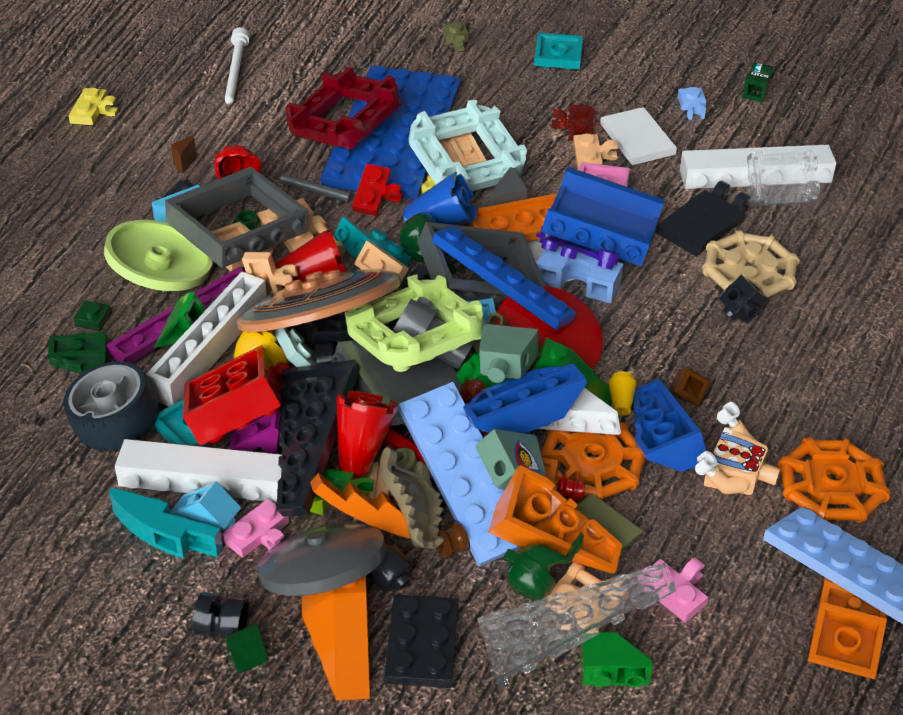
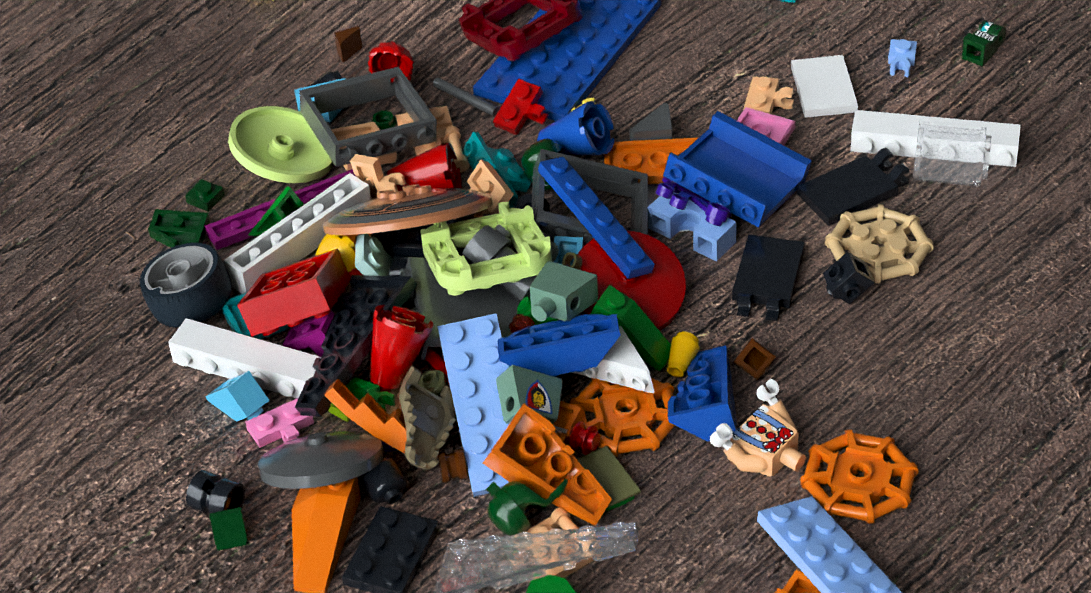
camera: 20 degrees right, 0 degrees up
(155, 525) = (190, 404): teal slope -> none
(427, 132) = (652, 45): light aqua plate -> none
(463, 149) = (626, 80): light nougat plate -> none
(577, 122) = (765, 63): clear red plate -> none
(665, 308) = (767, 274): none -> black tile
(687, 599) = (652, 553): bright pink plate -> none

